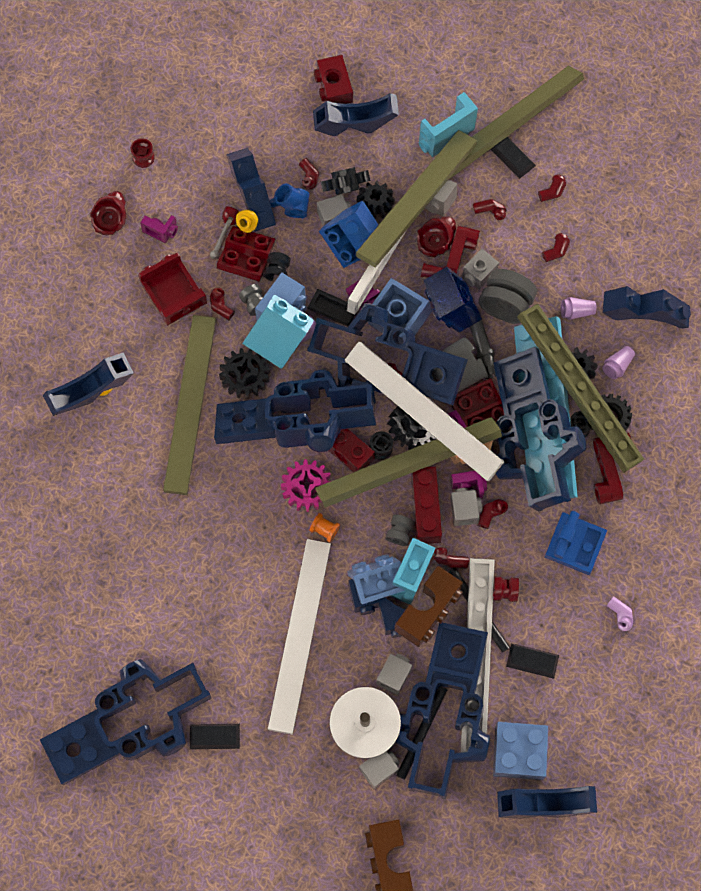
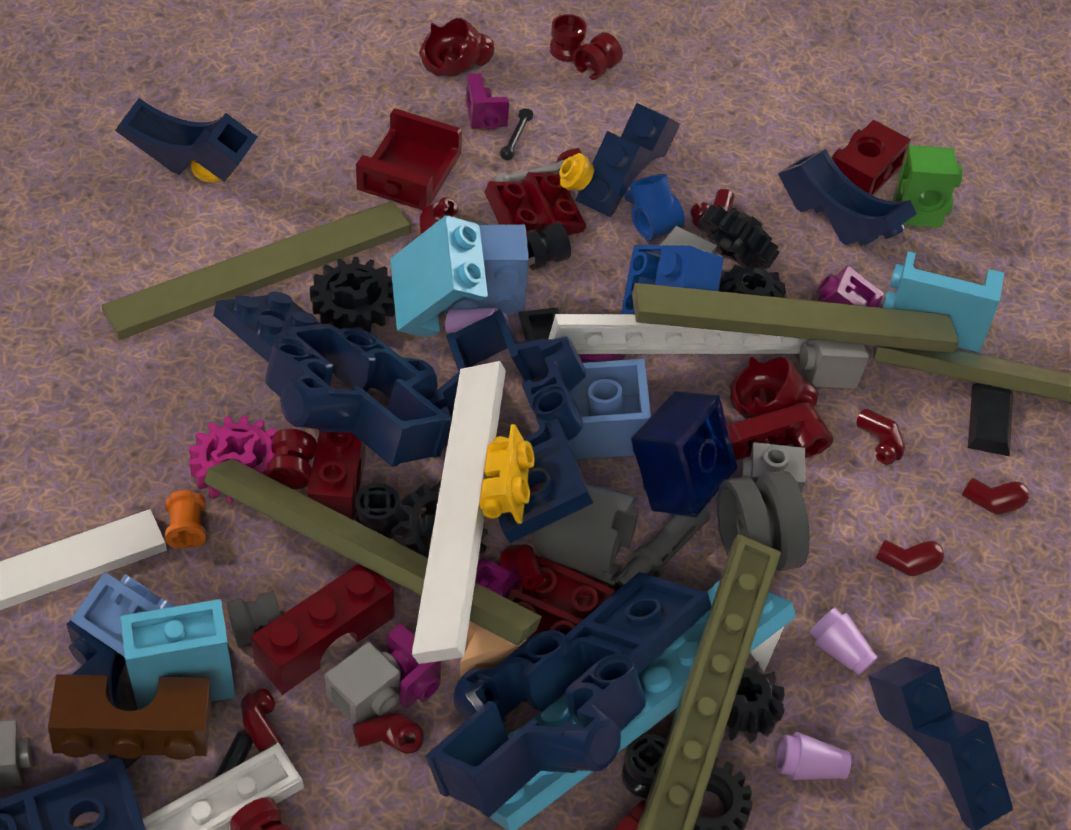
camera: 50 degrees right, 20 degrees down
(166, 147) = (600, 54): none -> dark red wheel
(176, 211) = (507, 152): none -> black hinge
(334, 463) = (291, 458): none -> dark red wheel
(376, 73) = (929, 183): none -> bright green brick
(406, 158) = (850, 289): none -> magenta bracket
(422, 377) = (510, 461): none -> yellow hinge
(459, 405) = (522, 561): none -> dark red arm

